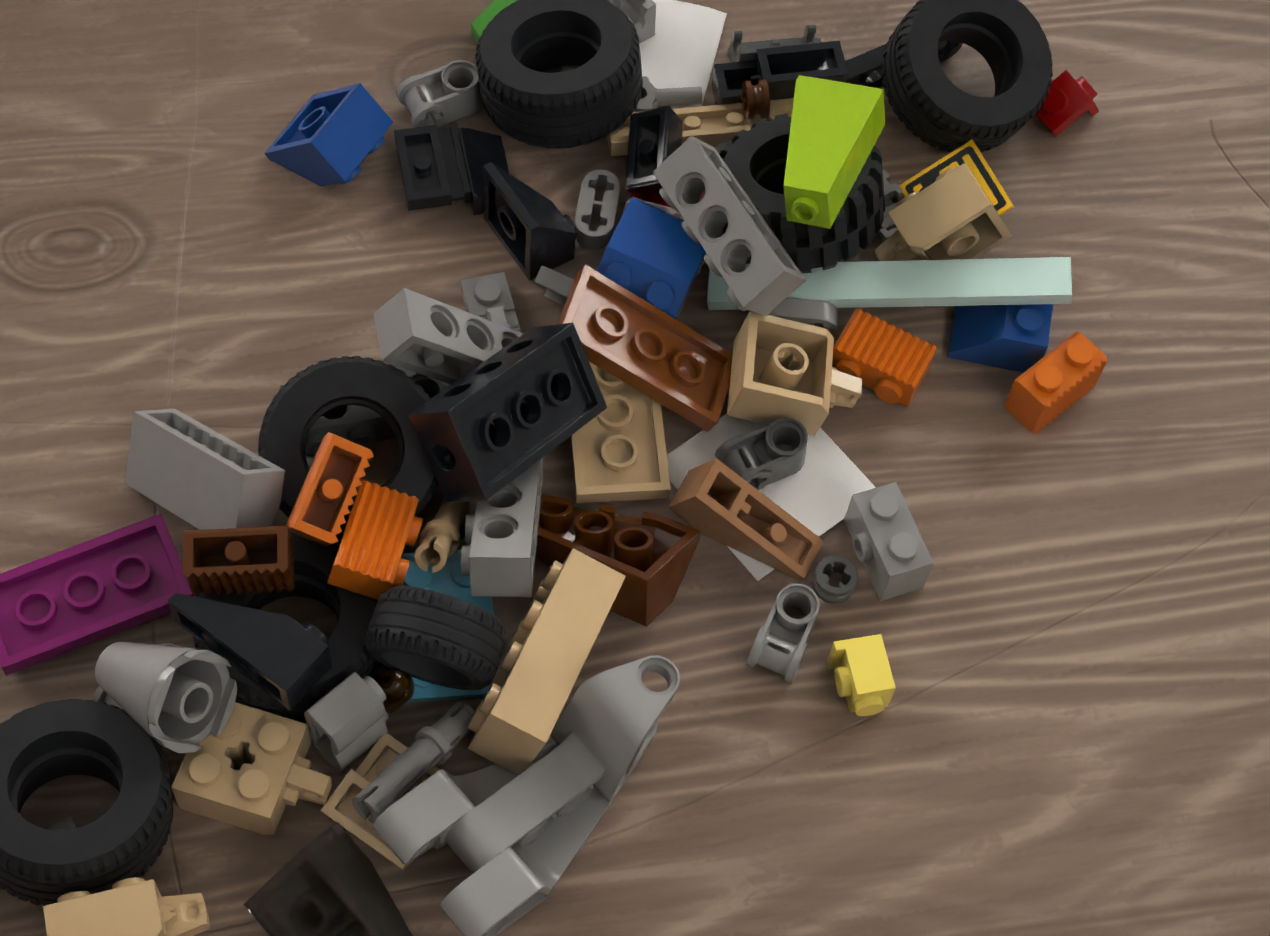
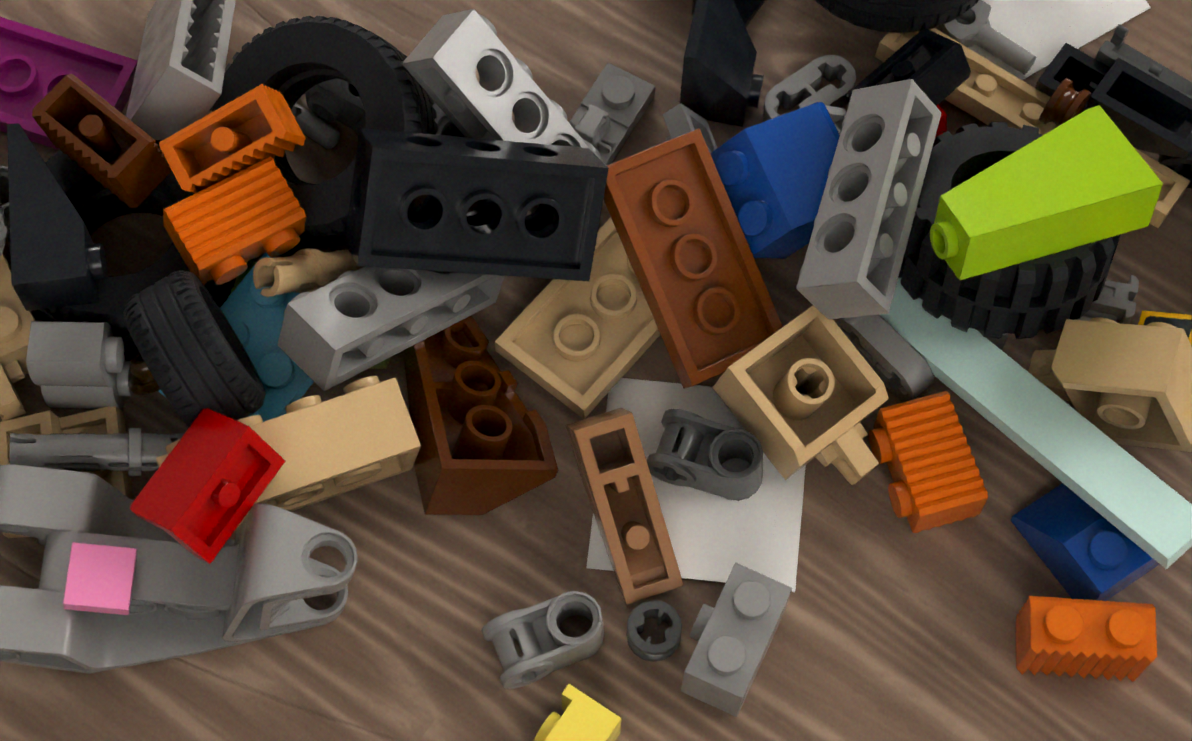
camera: 50 degrees right, 5 degrees up
(518, 822) = (100, 578): none -> bright pink tile
(538, 698) = (208, 483): none -> red panel

